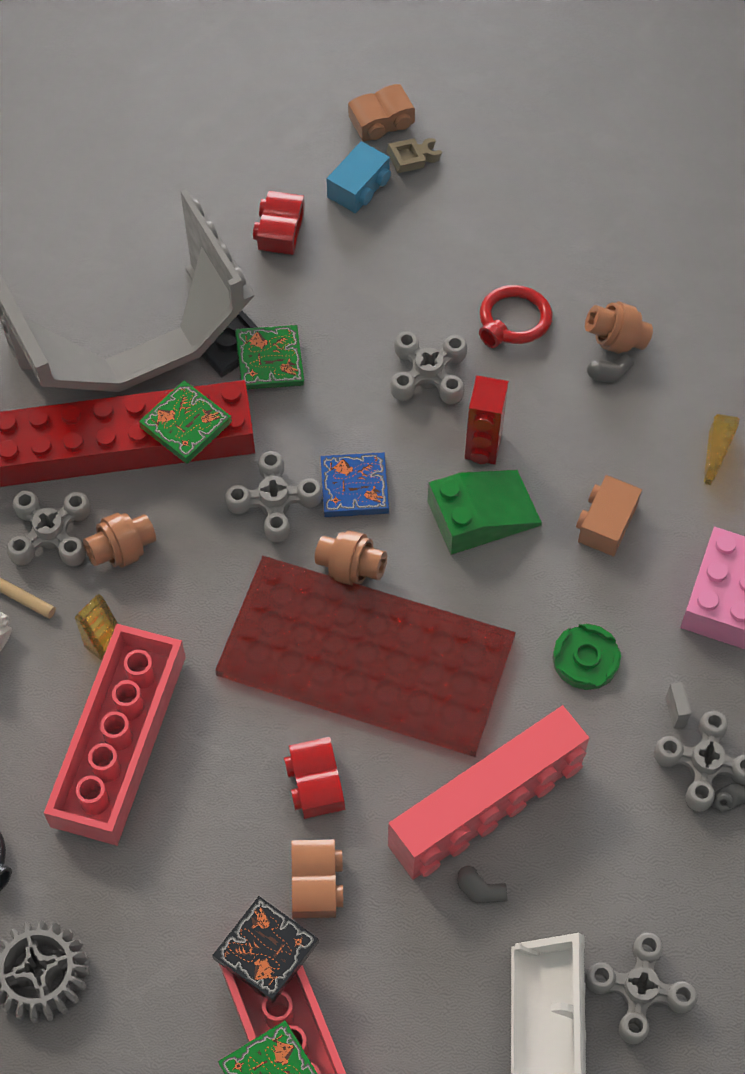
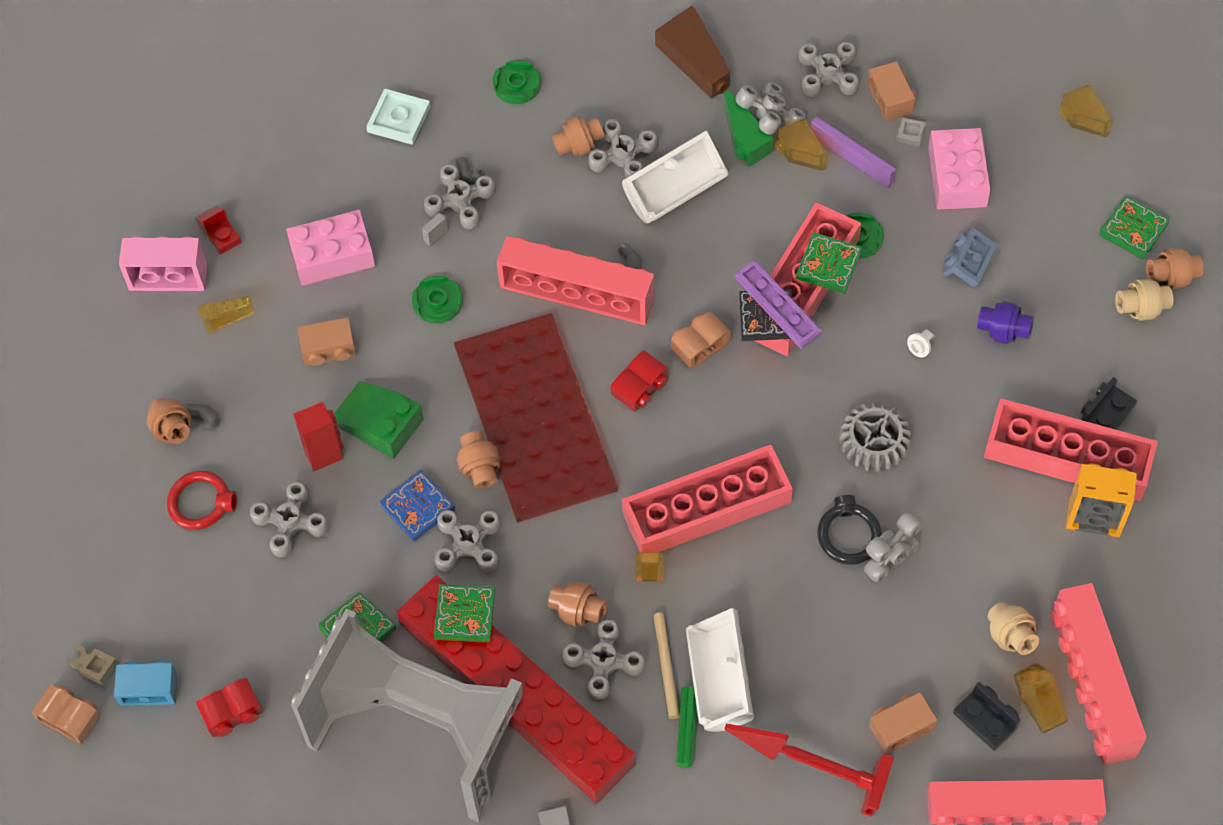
camera: 125 degrees left, 0 degrees up
(261, 963) = (778, 304): none -> medium lavender tile
(697, 945) = (578, 136): none -> nougat piece

